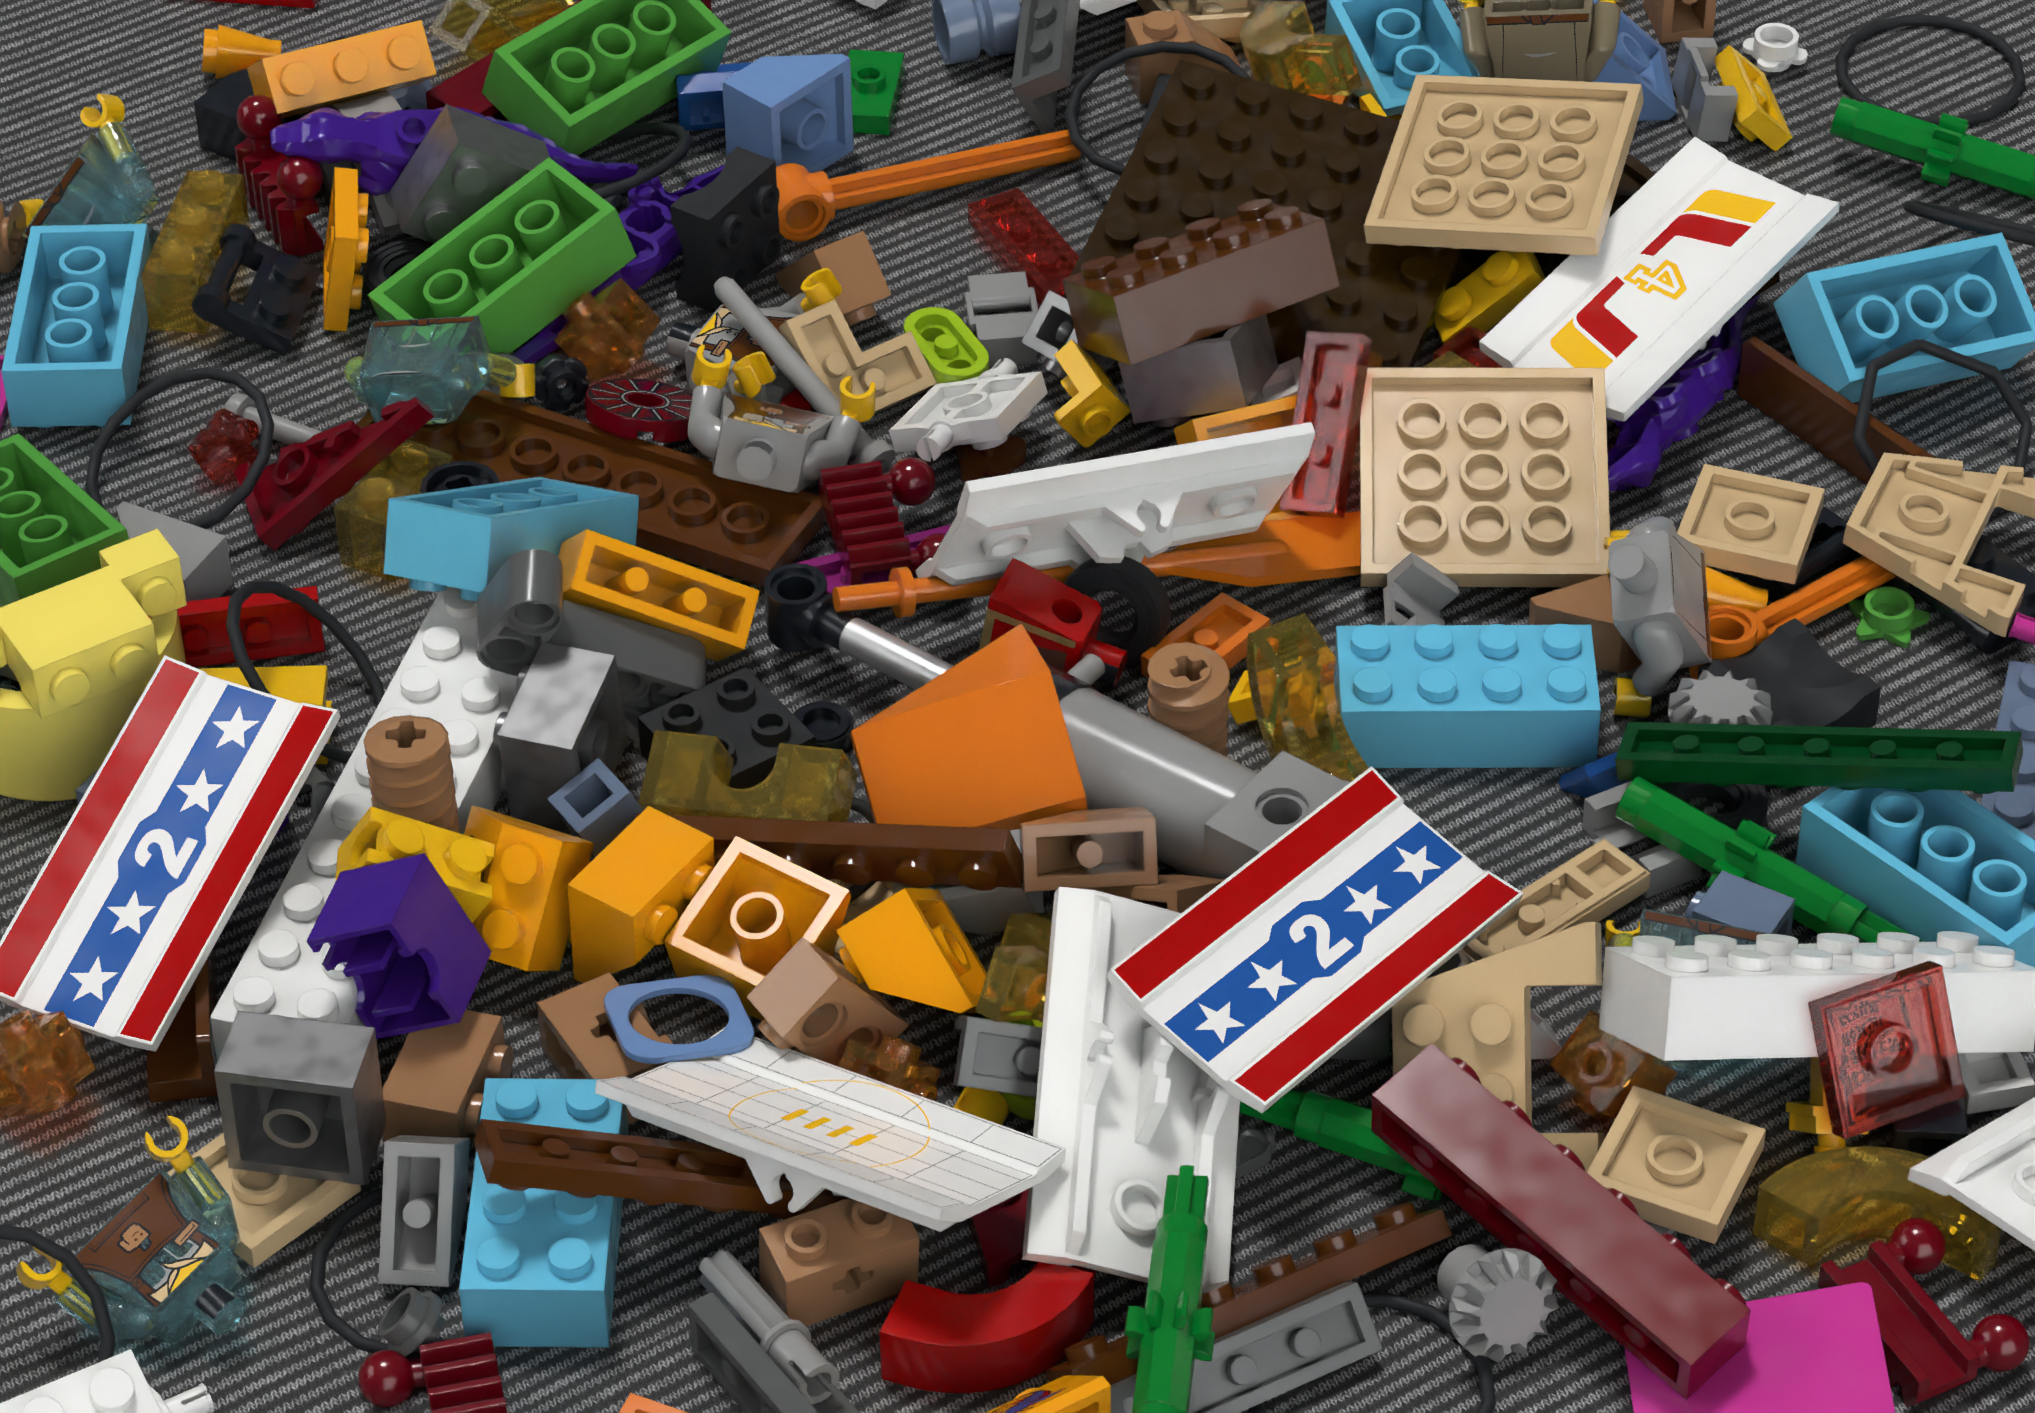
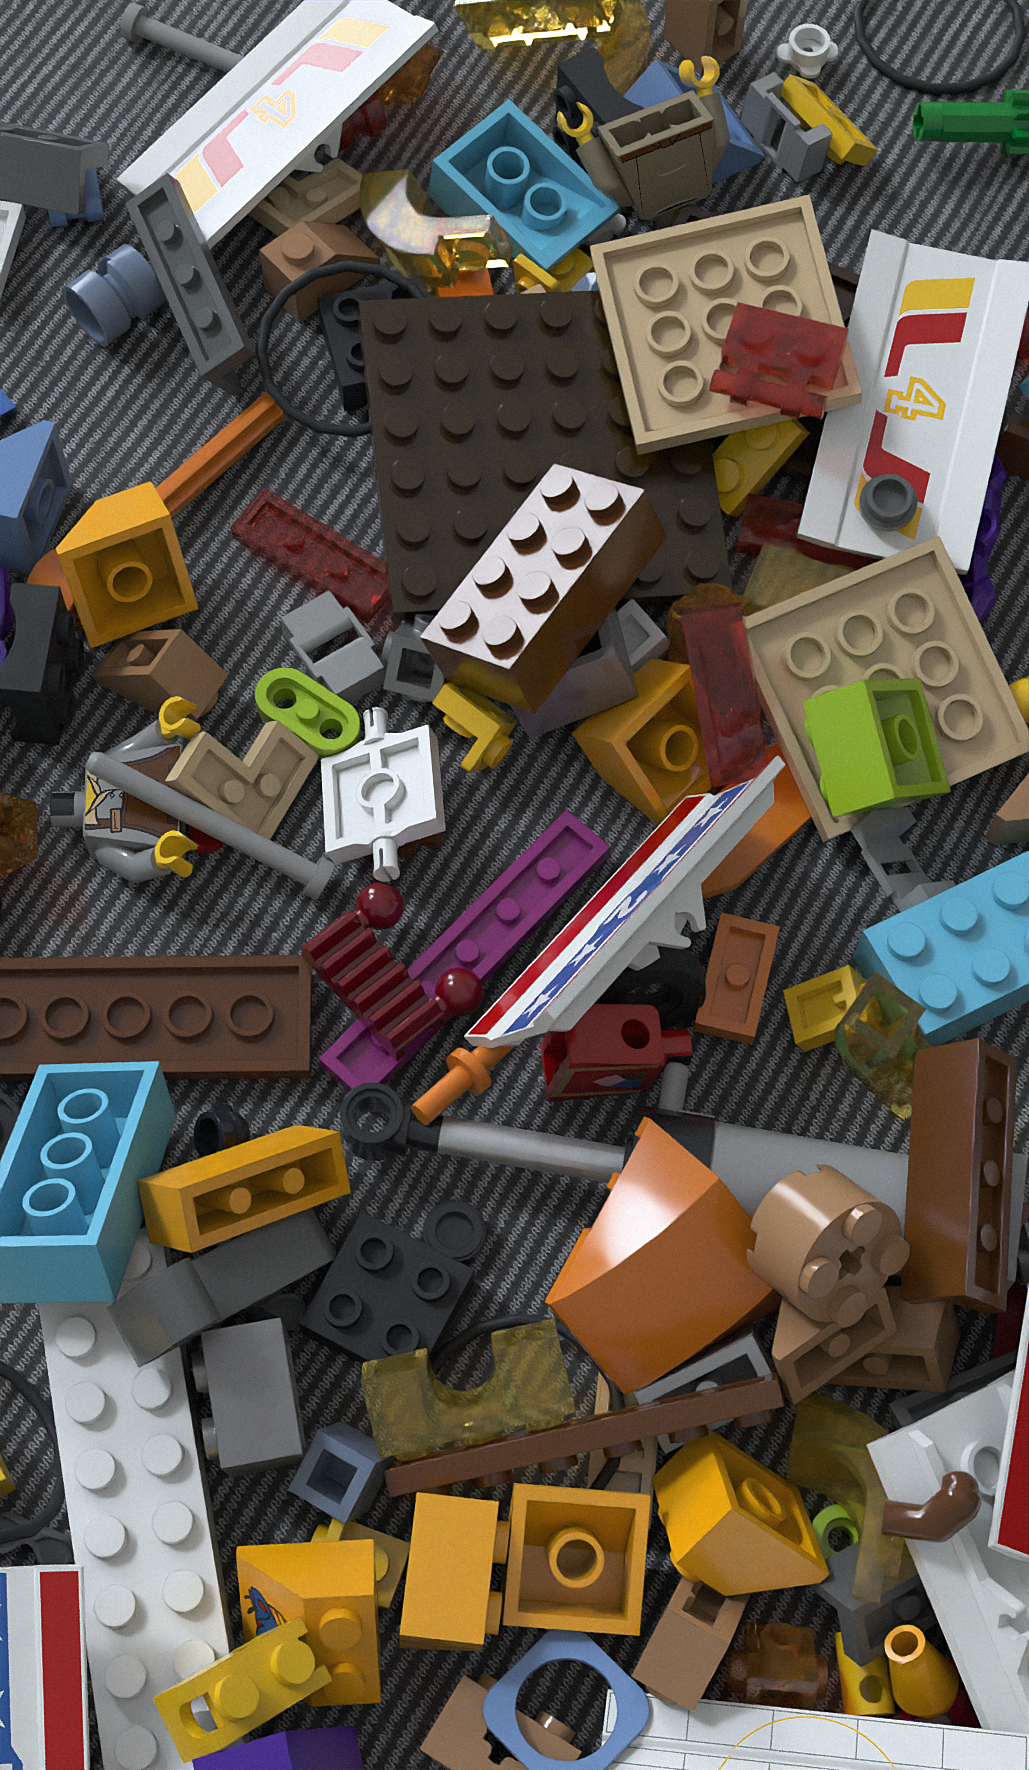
camera: 30 degrees left, 25 degrees up
(412, 770) = (162, 1597): medium nougat piece -> none
(637, 405) = (71, 890): dark red tile -> none
(767, 440) = (224, 919): light grey torso -> none
(845, 183) = (125, 566): none -> light orange slope
(875, 89) = (48, 395): green plate -> none
(1007, 1095) = (920, 1675): none -> light orange cone
(1079, 944) = (940, 1516): none -> reddish brown arm
(1148, 765) = (826, 1244): none -> medium nougat brick
(1190, 693) = (793, 1089): medium nougat piece -> none
(1285, 765) = (960, 1176): none -> reddish brown panel
(1441, 497) = (875, 745): none -> lime slope
(1529, 190) = (781, 347): none -> clear red plate
(1577, 337) = (888, 502): none -> dark grey plate

